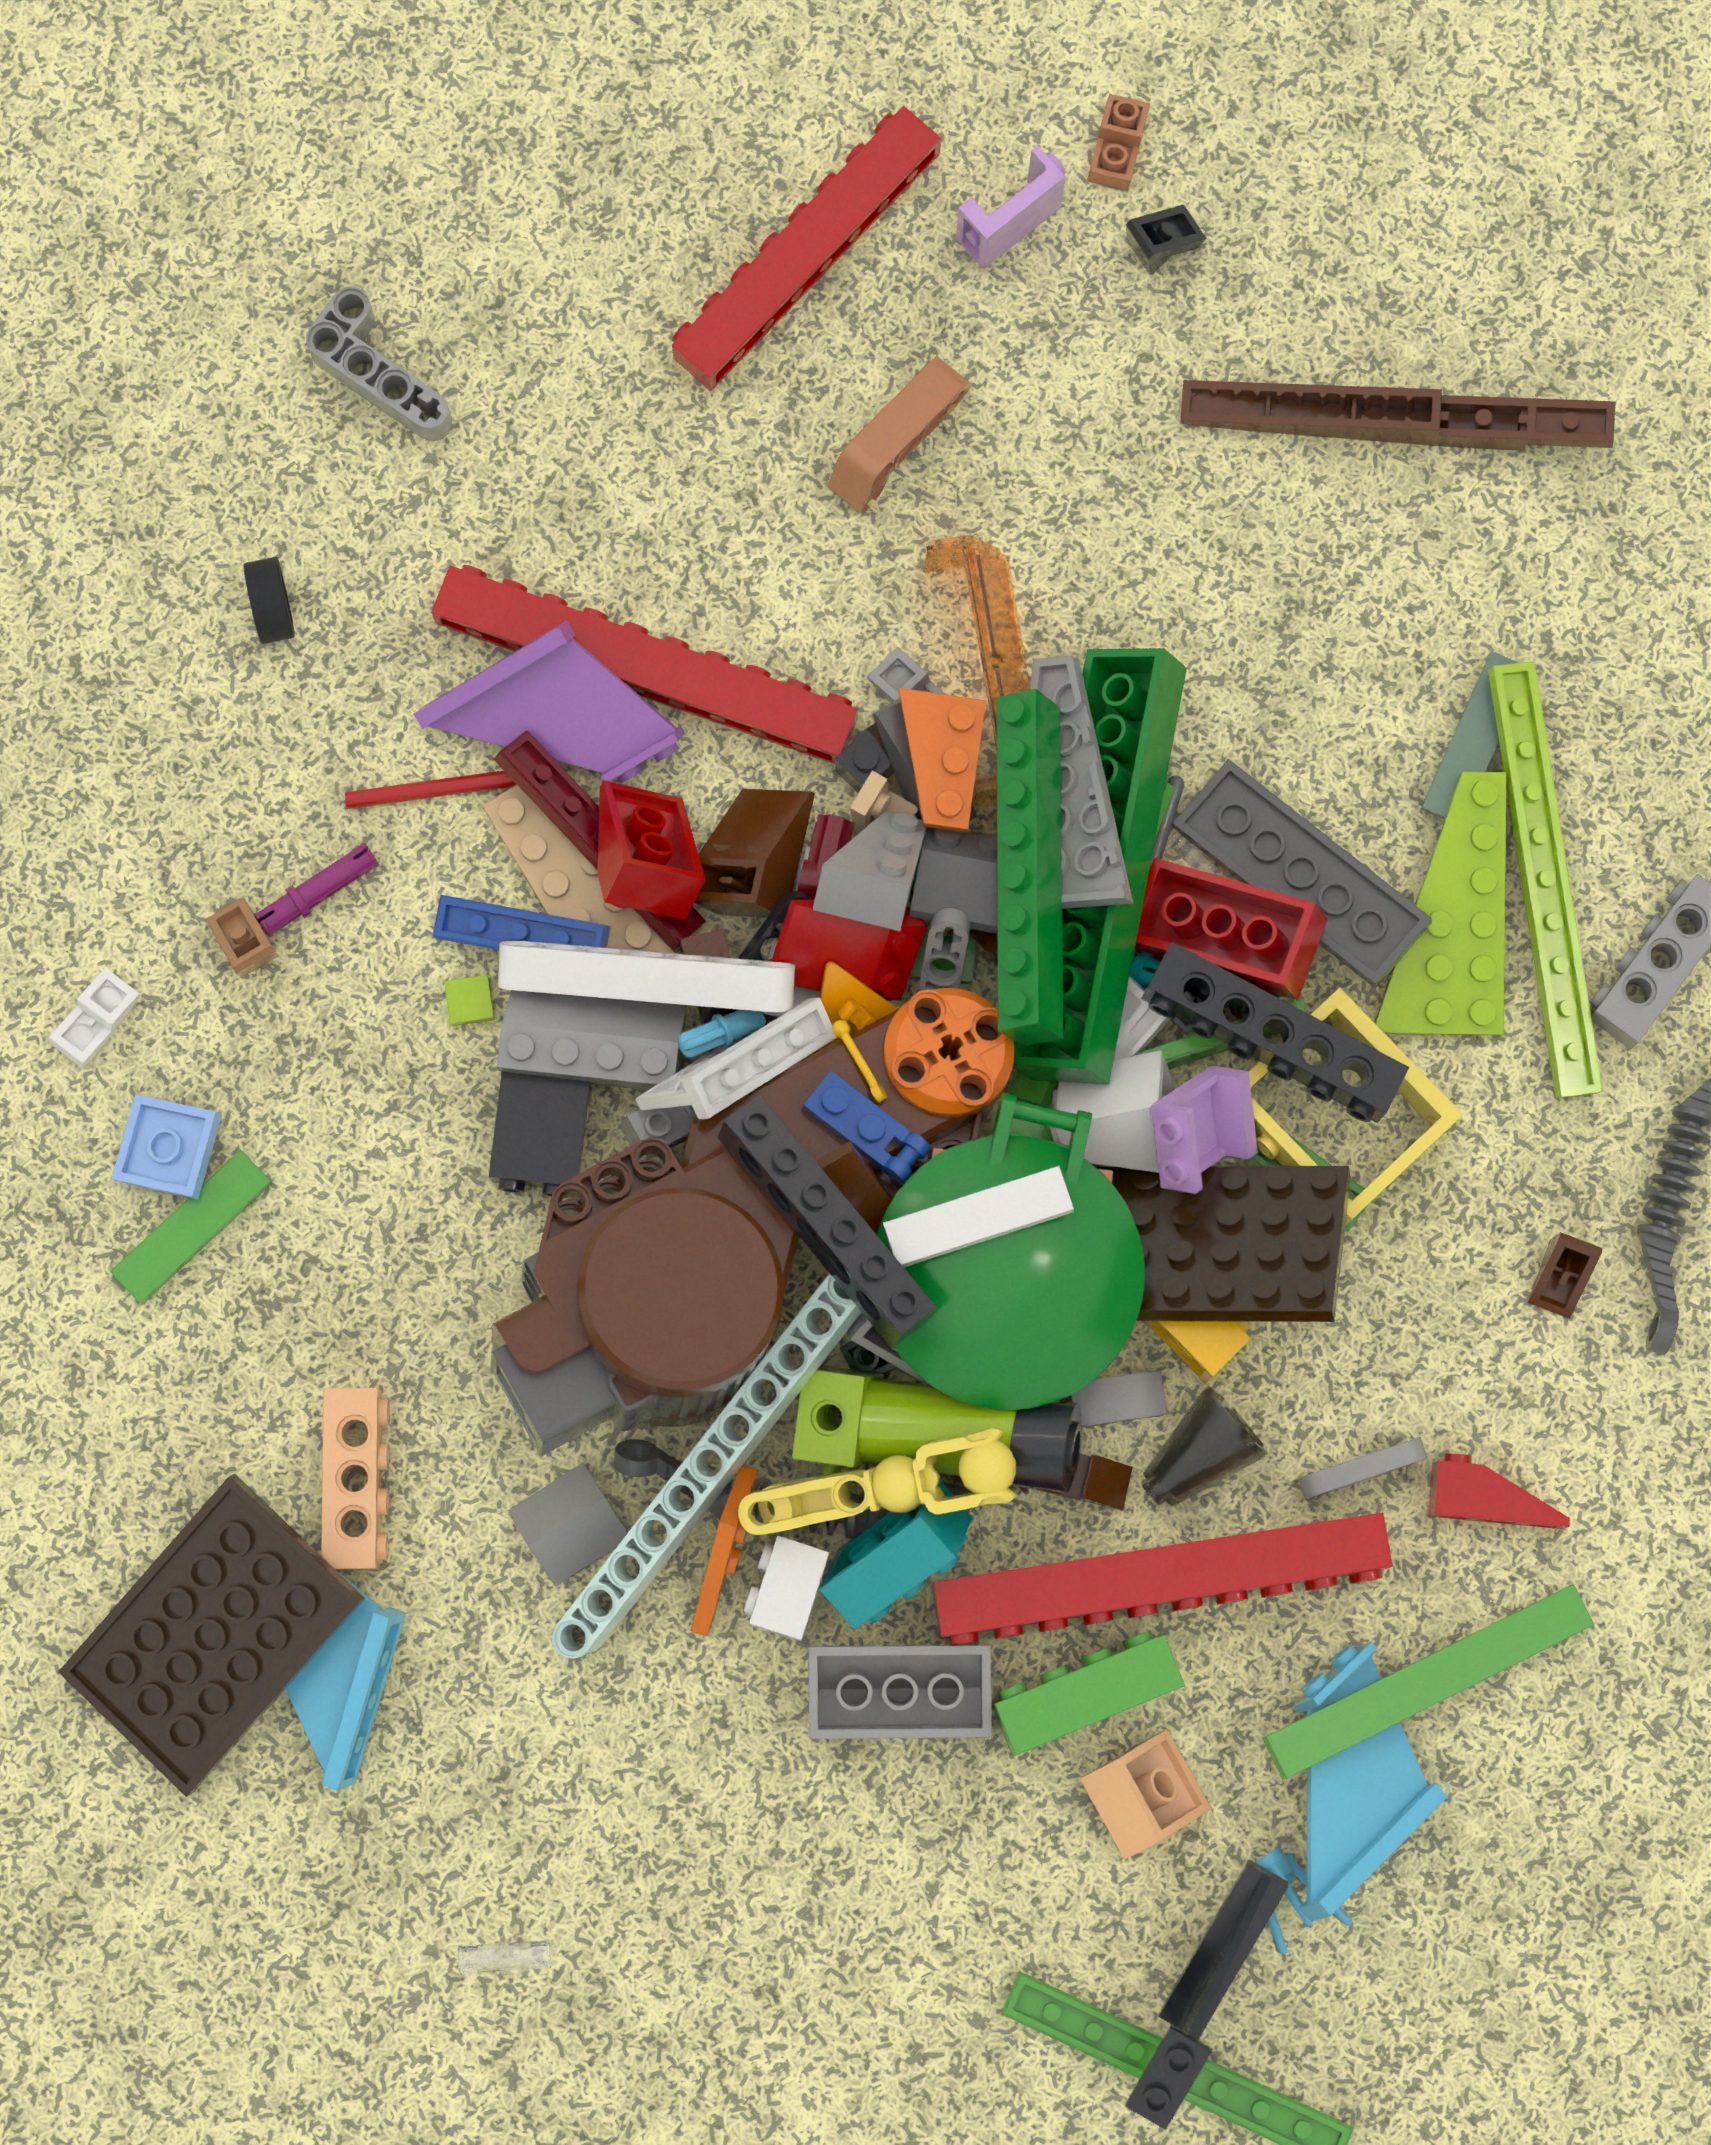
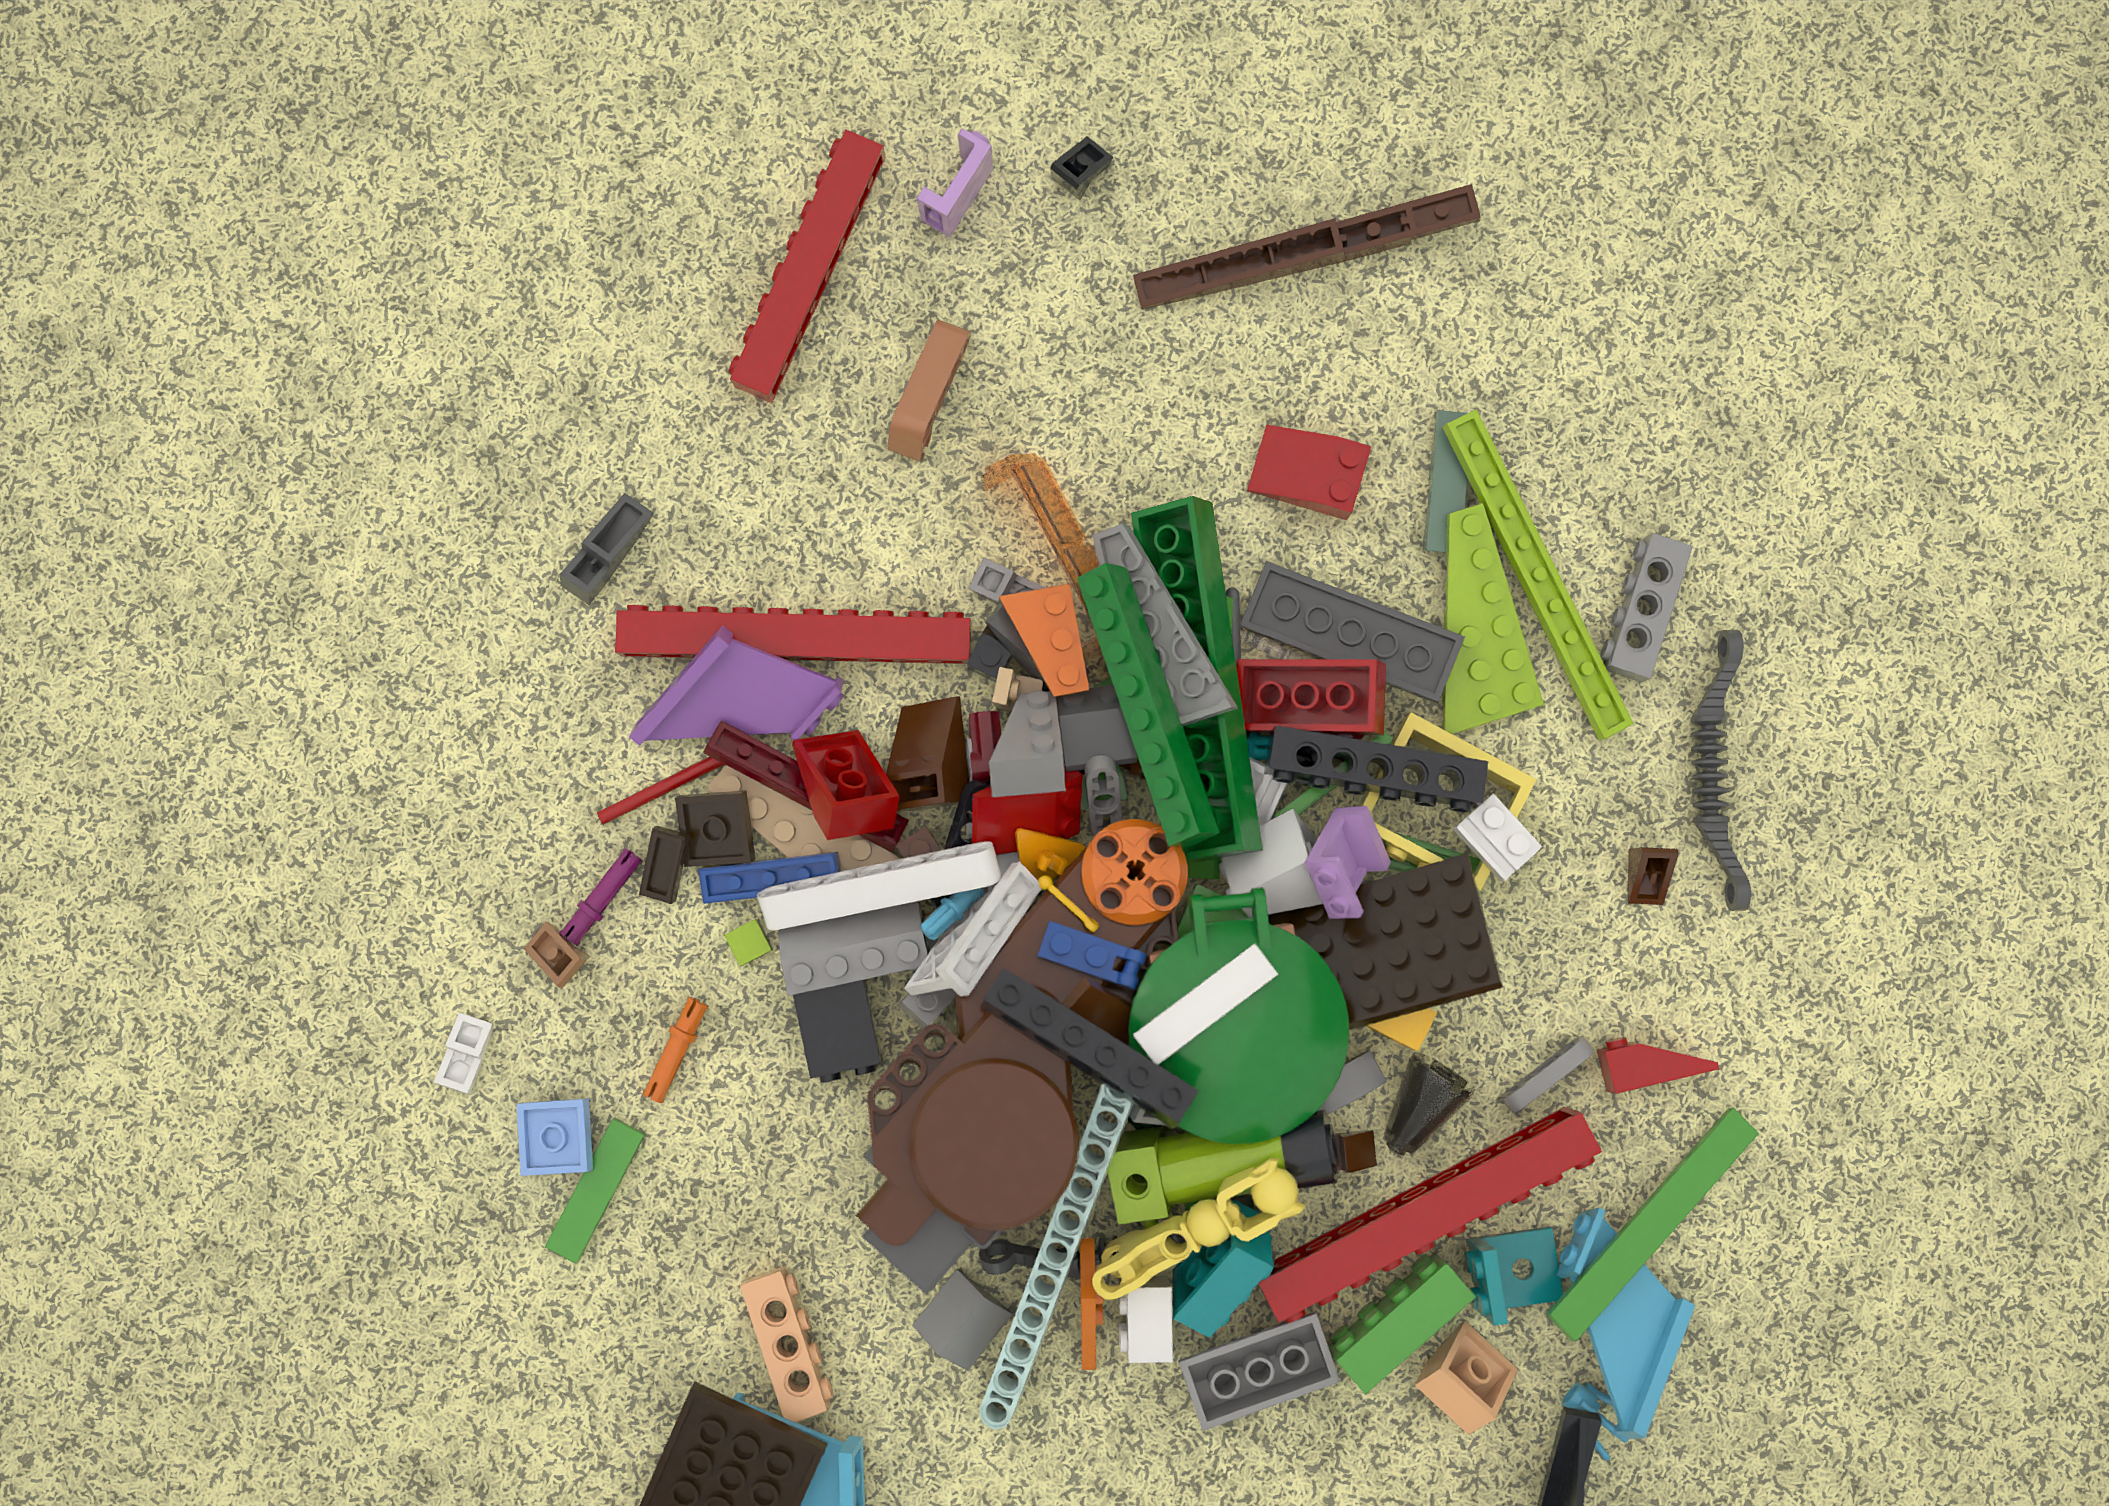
camera: 20 degrees left, 5 degrees up
(269, 600) = (485, 684): black tyre -> none
(341, 1094) = (681, 1036): none -> orange pin
(384, 373) = (513, 474): light grey beam -> none
(402, 876) = (664, 864): none -> dark brown tile
(459, 493) = (605, 549): none -> dark grey slope
(477, 853) = (717, 828): none -> dark brown plate
(1118, 142) = (1020, 103): nougat slope -> none
(1218, 1682) = (1491, 1265): none -> teal bracket
(1315, 671) = (1309, 470): none -> red slope
(1392, 1164) = (1497, 838): none -> white plate

